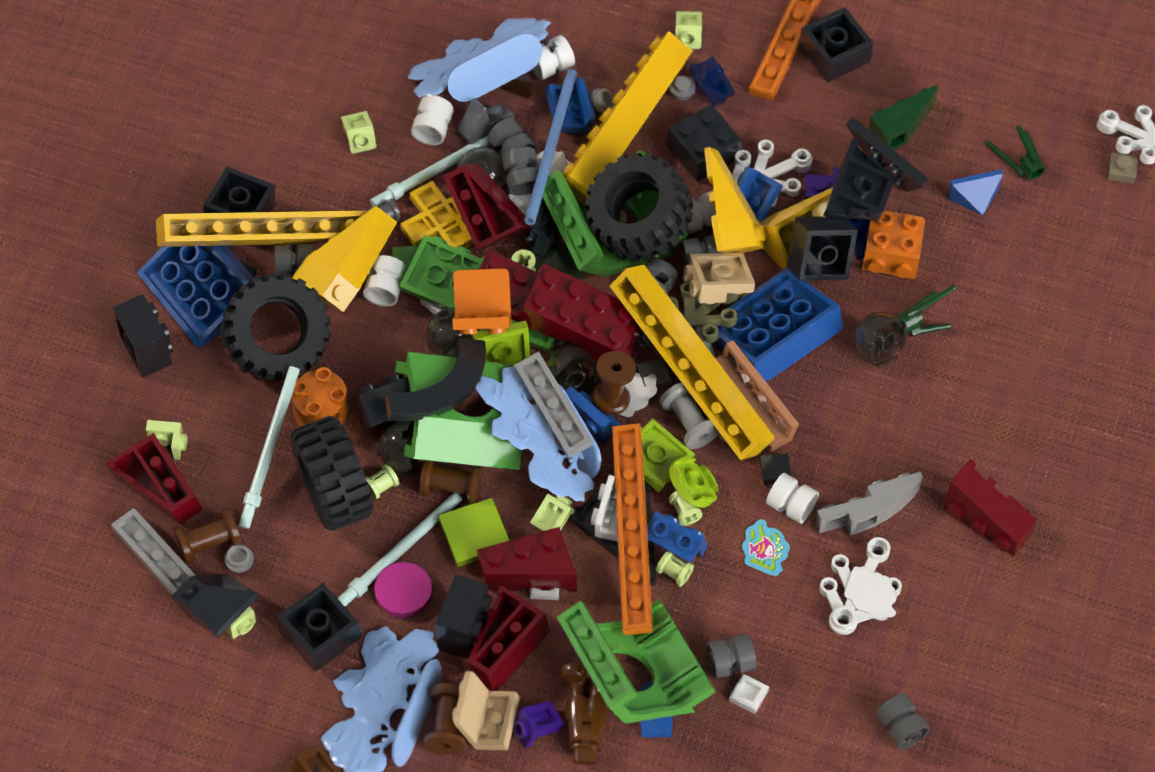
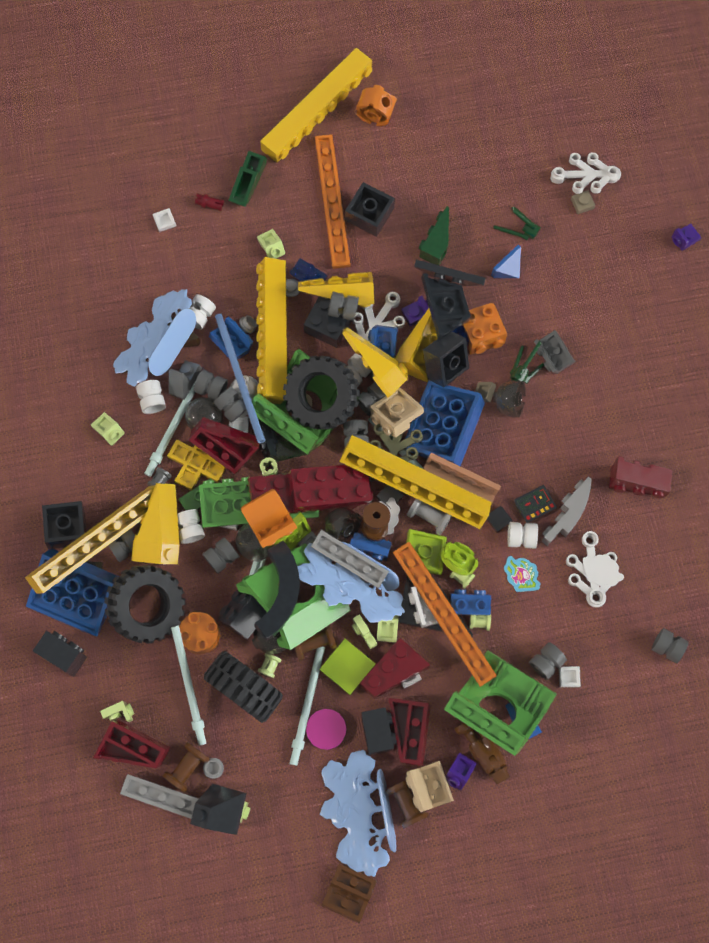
camera: 30 degrees left, 15 degrees up
(319, 627) = (293, 788): black brick -> none
(401, 330) = (220, 555): none -> dark grey wheel
(518, 497) = (361, 628): none -> yellowish green plate
(727, 125) = (343, 306): none -> dark grey wheel
(755, 120) = (356, 285): none -> yellow wedge
(834, 474) = (534, 504): none -> piece
(853, 314) = (486, 389): none -> dark tan plate
(970, 316) = (554, 352): none -> dark grey bracket

